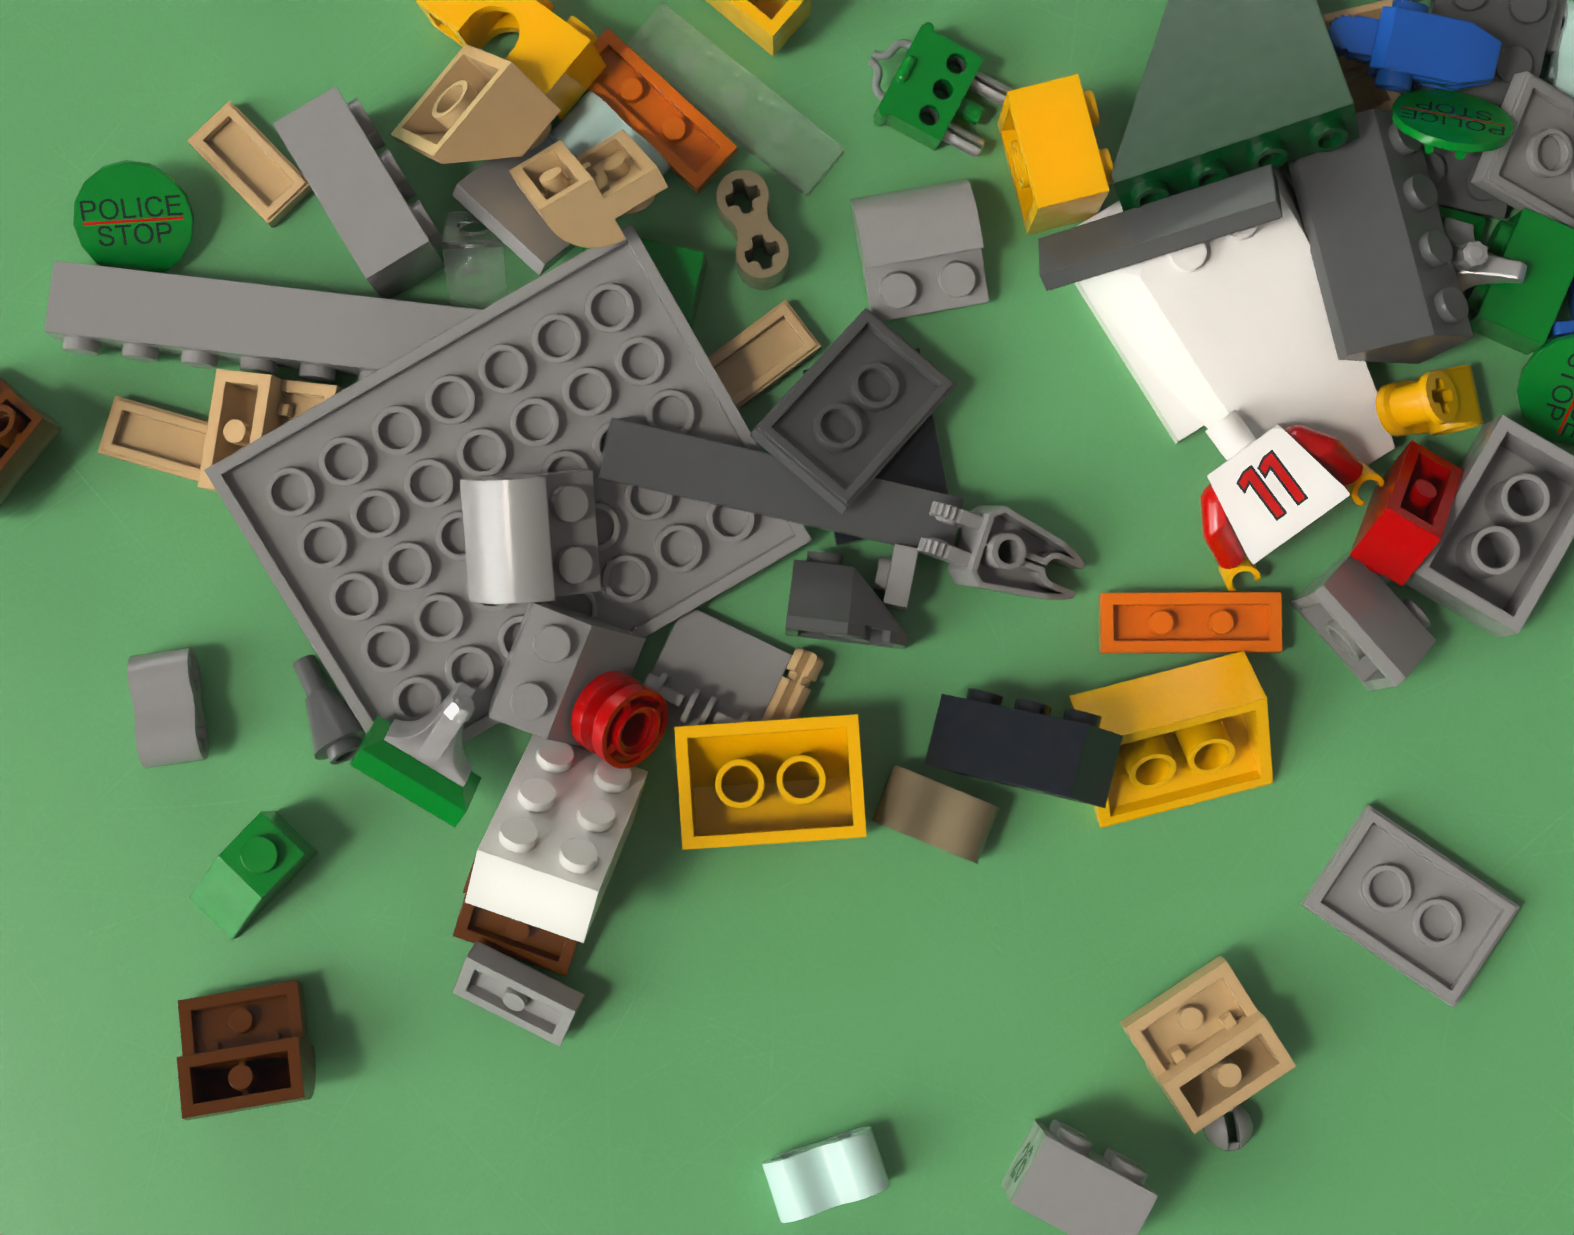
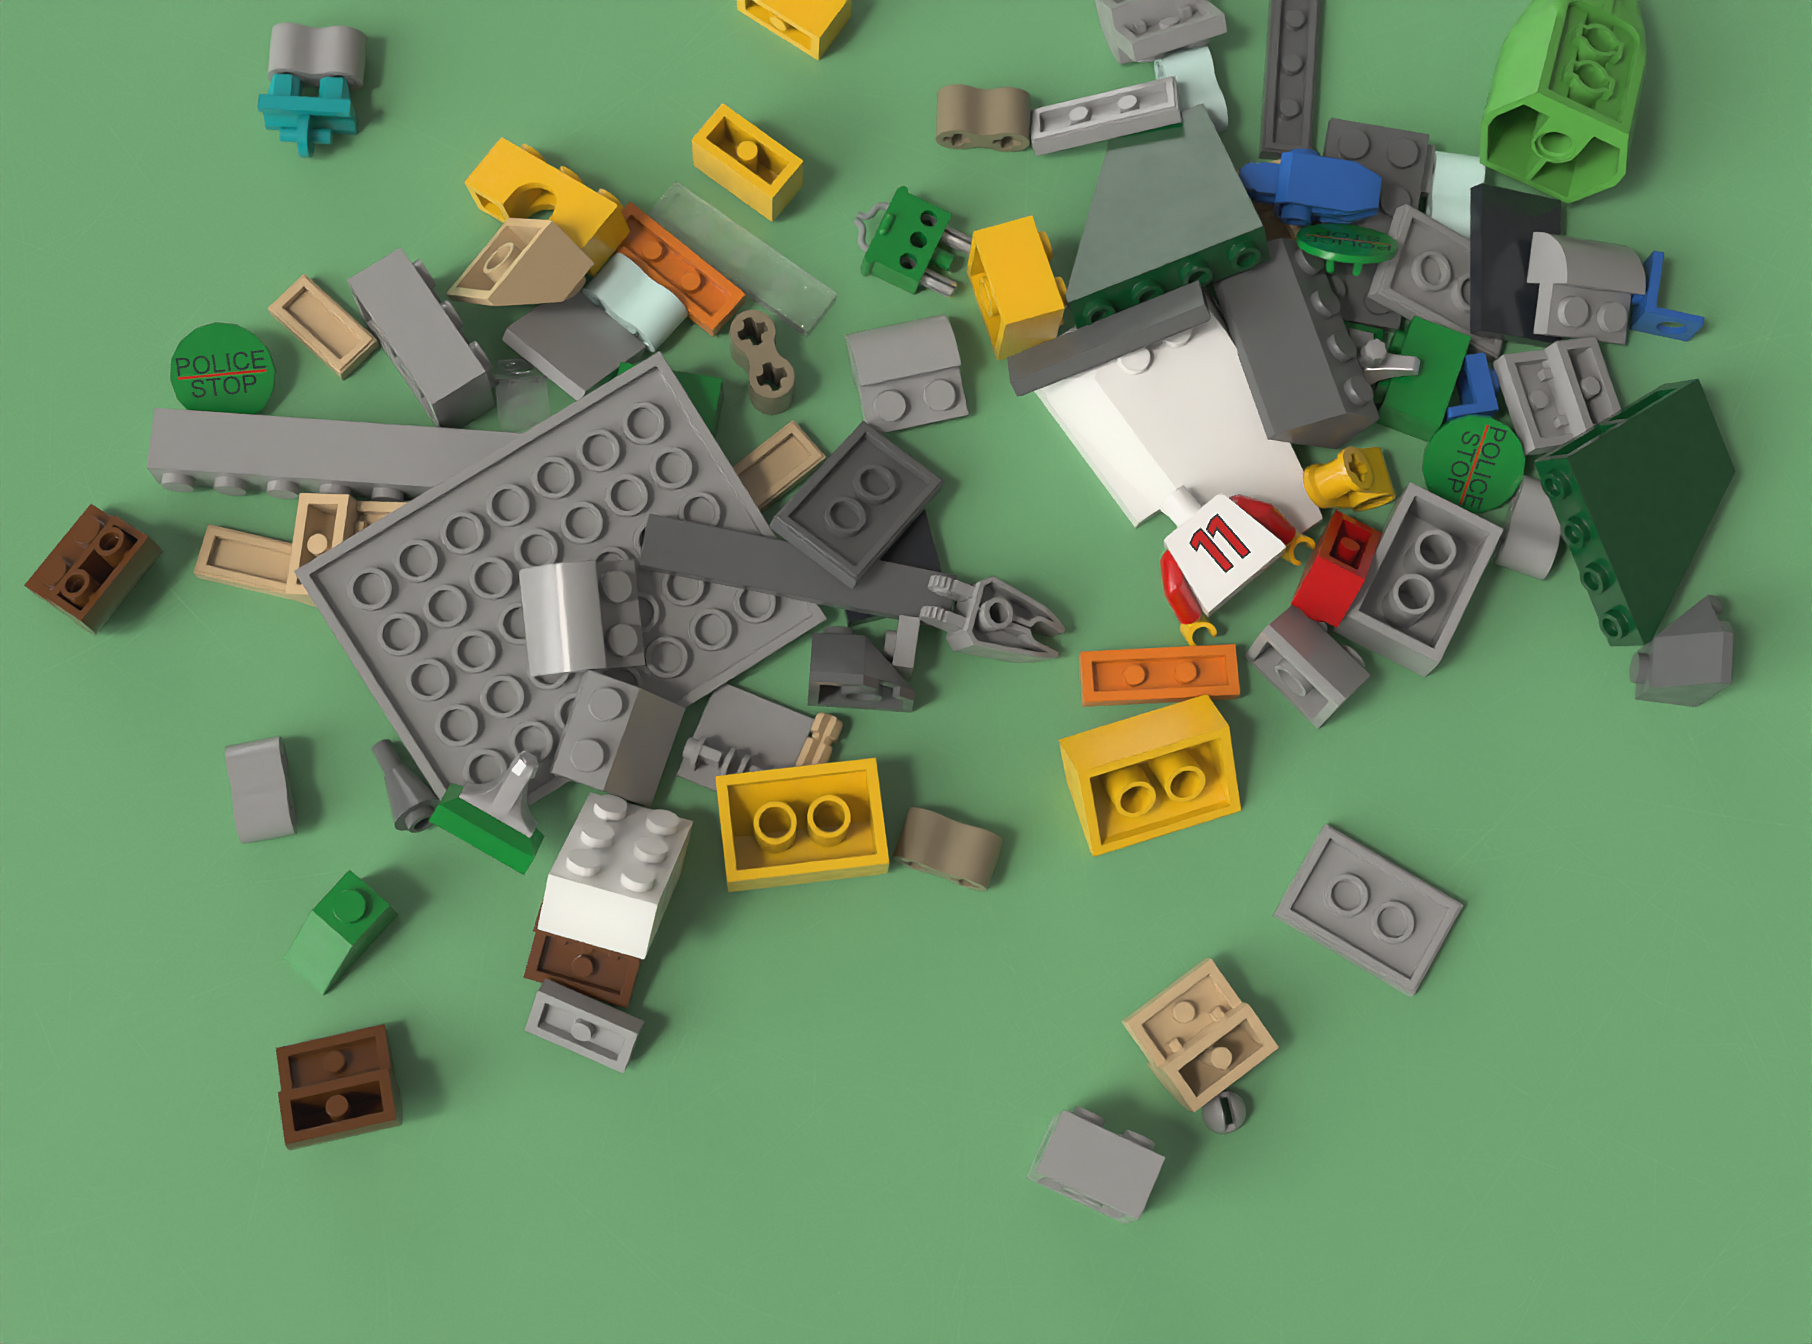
camera: 15 degrees left, 10 degrees down
(589, 191) = (622, 327): tan brick -> none
(619, 719) = (666, 773): red wheel -> none
(826, 1174) = (868, 1172): light aqua axle -> none
(1025, 746) = (1022, 779): black brick -> none

